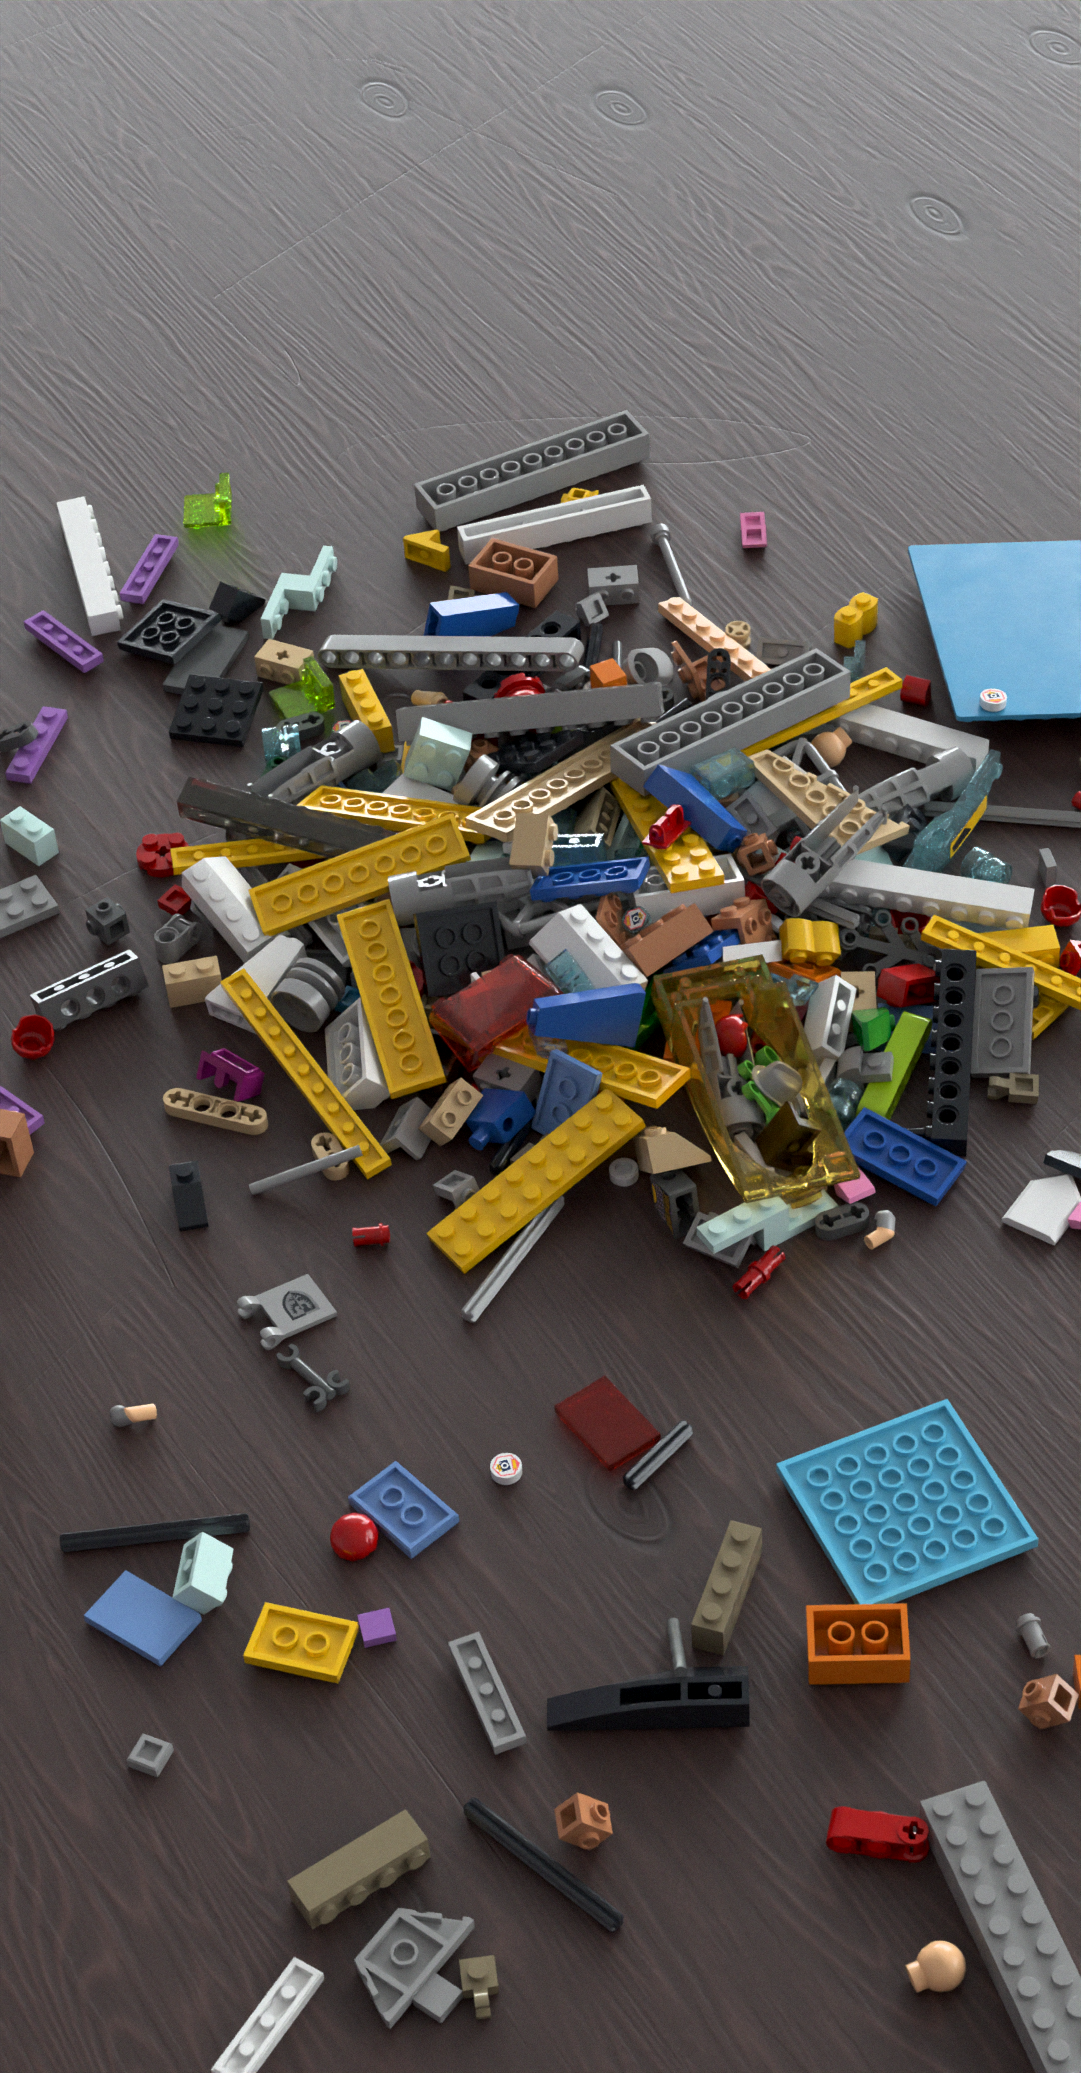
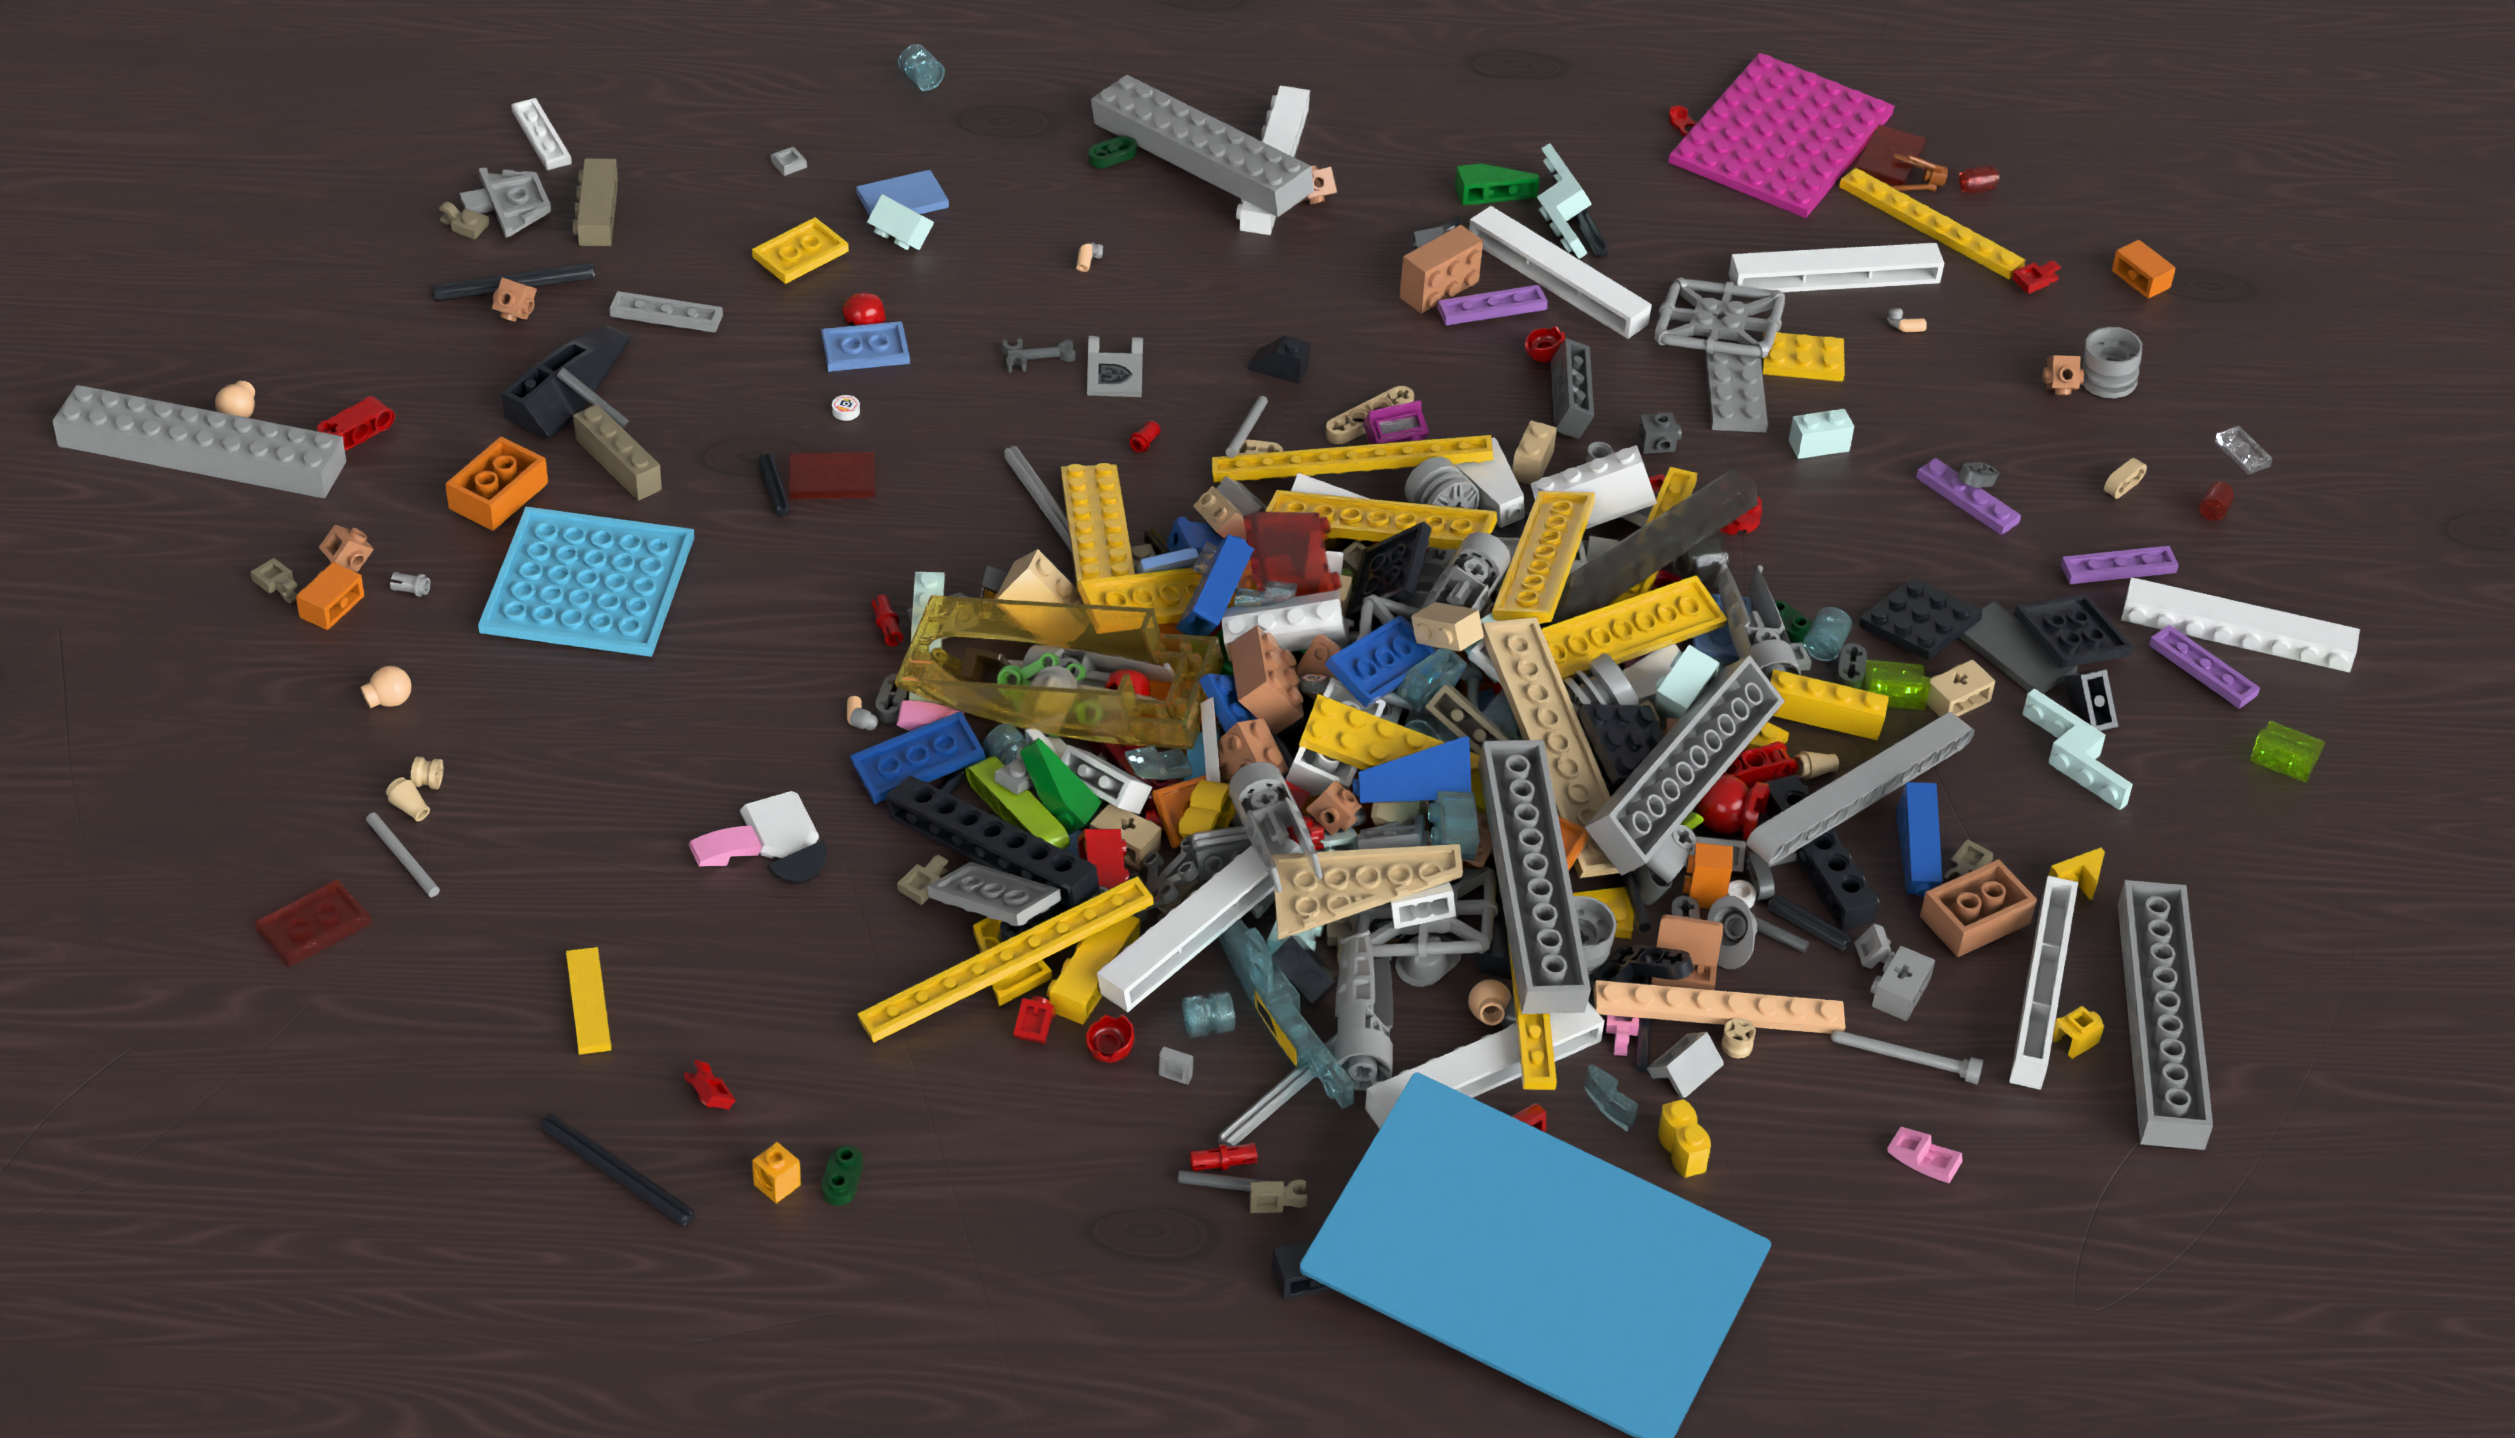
camera: 115 degrees right, 0 degrees up
(154, 1532) = (969, 228): black axle -> none
(377, 1627) = (777, 291): medium lavender tile -> none
(456, 1187) = (1144, 496): light grey bracket -> none
(667, 828) = (1394, 728): red hinge -> none
(993, 700) = (1415, 1111): tile -> none

